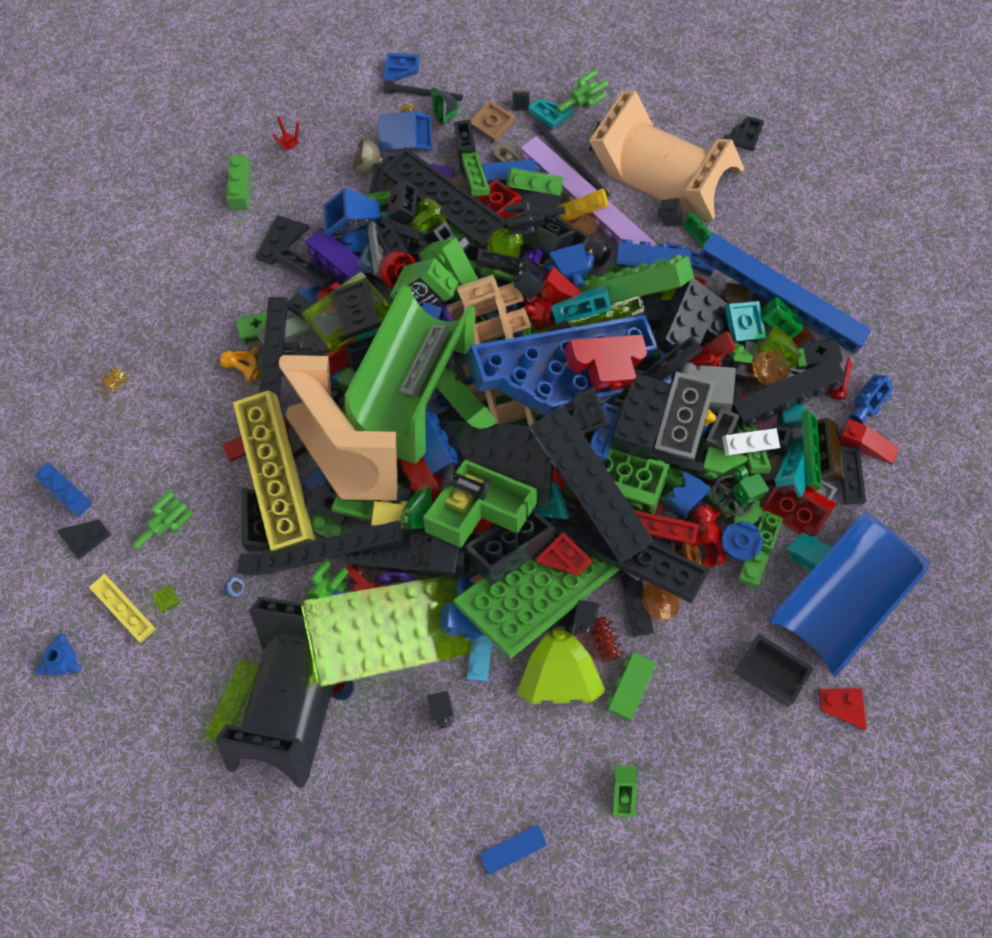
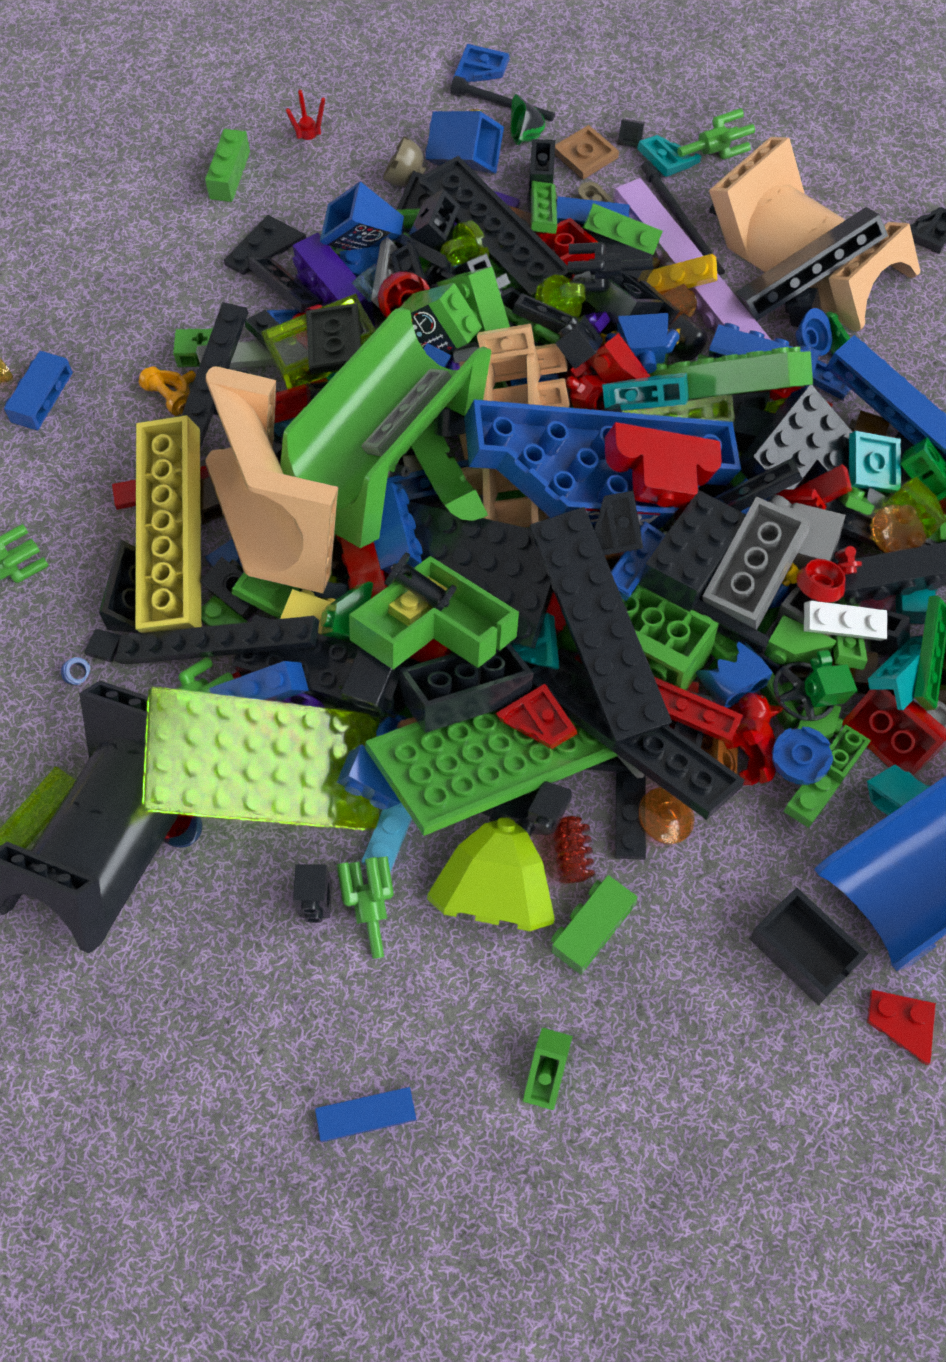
camera: 10 degrees right, 5 degrees down
(149, 385) = (38, 390): none -> blue brick
(372, 576) = (267, 684): none -> blue brick
(453, 302) = (464, 352): none -> dark grey tile
(479, 703) = (367, 898): none -> bright green plant
(671, 182) = (812, 263): none -> black brick
(683, 231) = (815, 332): none -> blue piece
(730, 419) = (822, 580): none -> red hat
(743, 400) = (847, 561): none -> red plate

